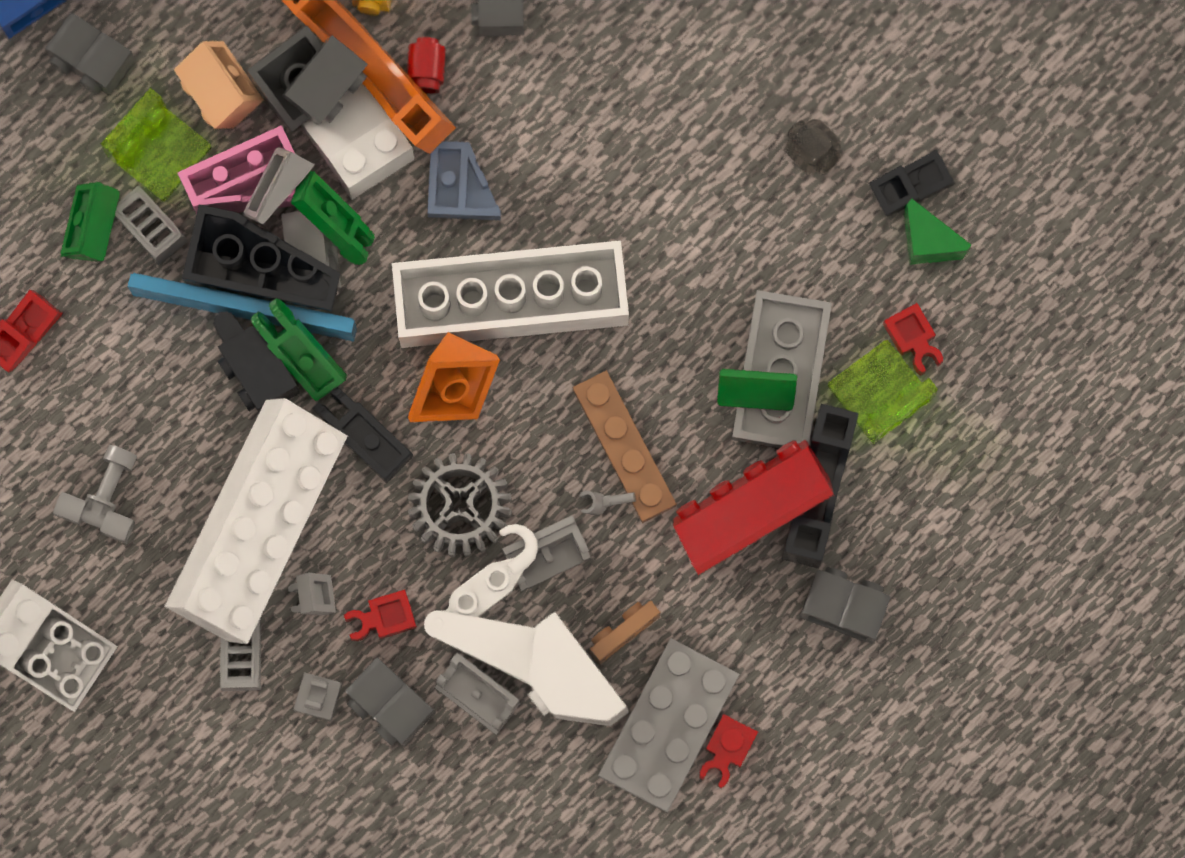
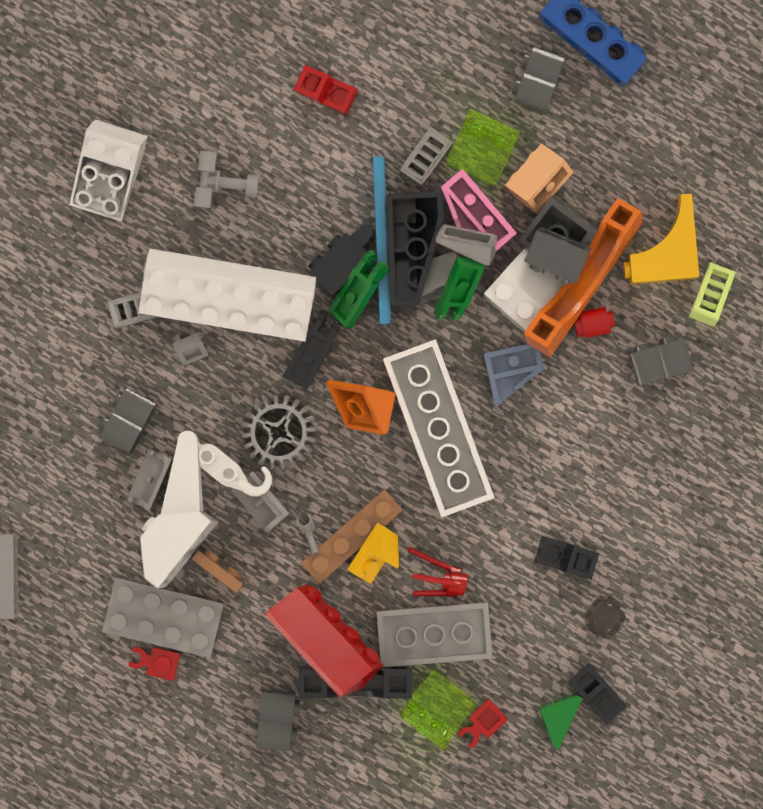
camera: 75 degrees right, 10 degrees up
(90, 222) = (416, 115): green slope -> none
(317, 696) = (121, 369): light grey tile -> none
(388, 614) = (189, 402): red plate -> none
(649, 414) = (377, 549): none -> yellow slope
(717, 330) = (453, 582): none -> red plant
(723, 178) = (566, 557): none -> black slope
(756, 389) = (412, 621): green slope -> none

